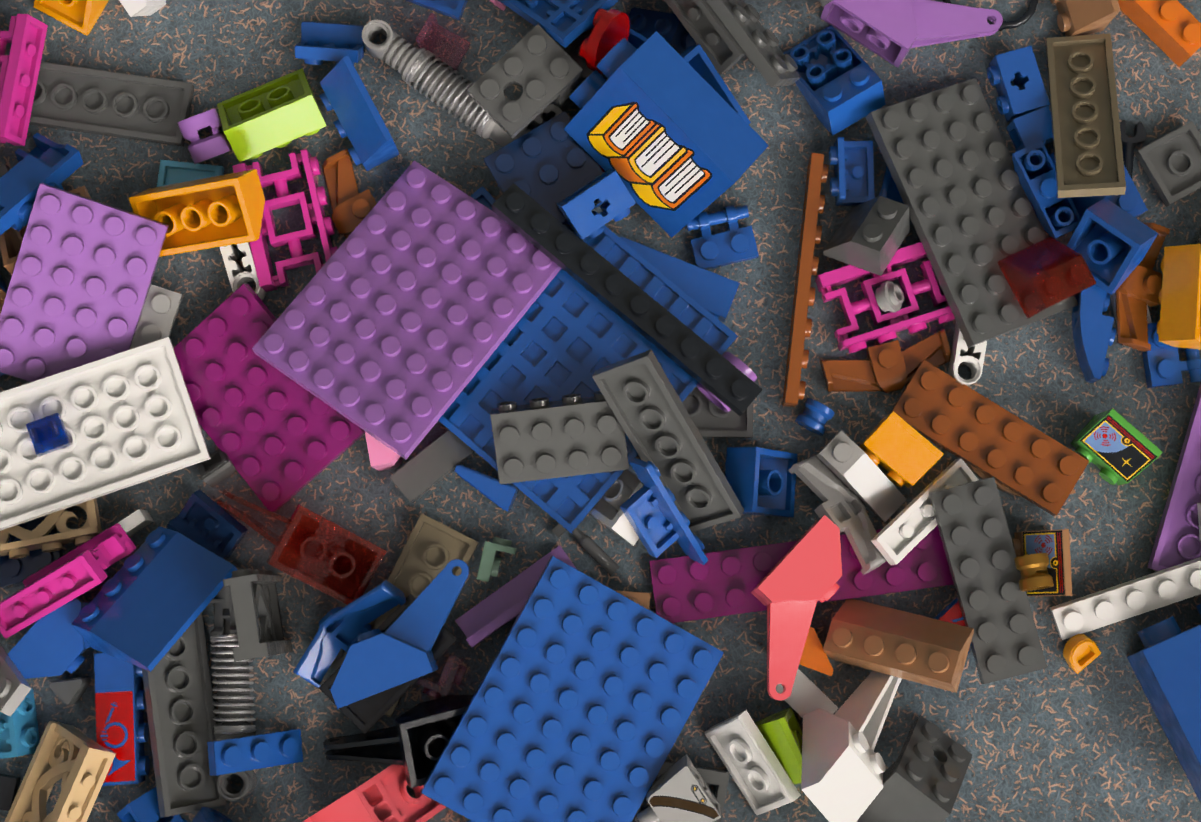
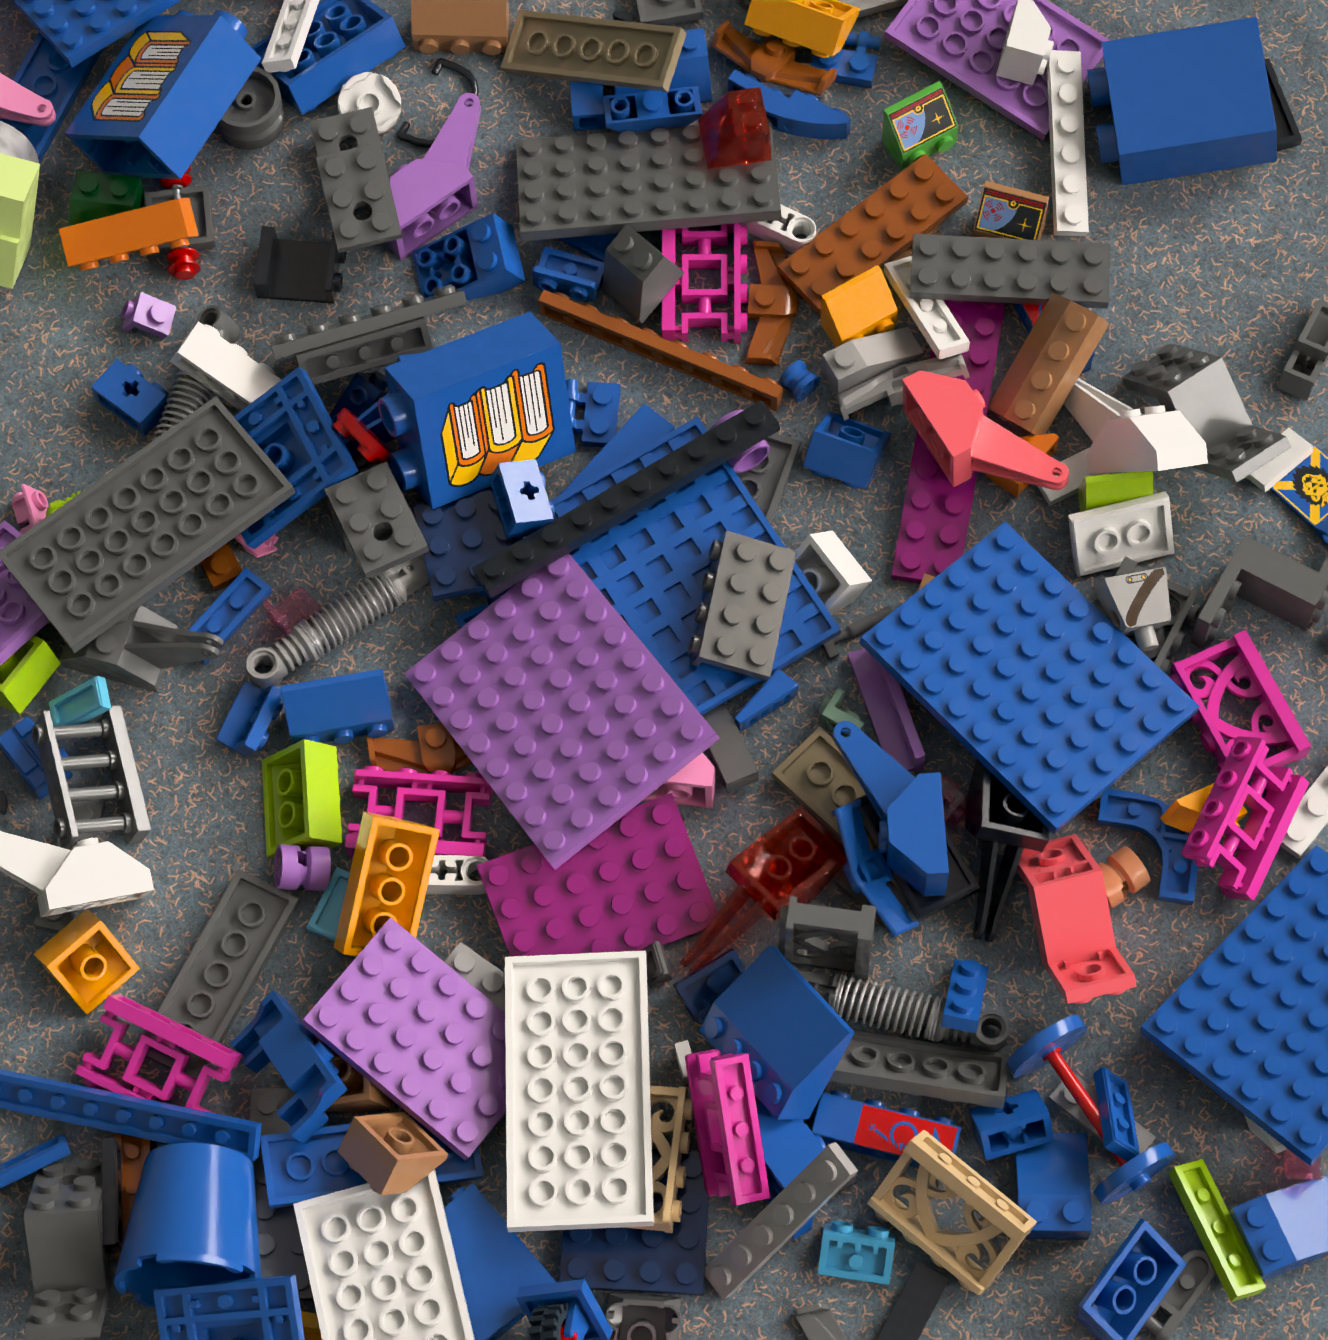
camera: 70 degrees left, 15 degrees down
(48, 434) = (569, 1094): clear blue tile -> none
(657, 517) = (852, 537): blue bracket -> none
(668, 438) = (784, 500): dark grey plate -> none
(889, 297) = (706, 275): light grey plate -> none
(1022, 69) = (551, 97): blue brick -> none
(1034, 572) = (1016, 223): pearl gold wheel -> none
(1080, 652) = (1105, 220): light orange tile -> none
(1111, 243) = (725, 64): blue slope -> none

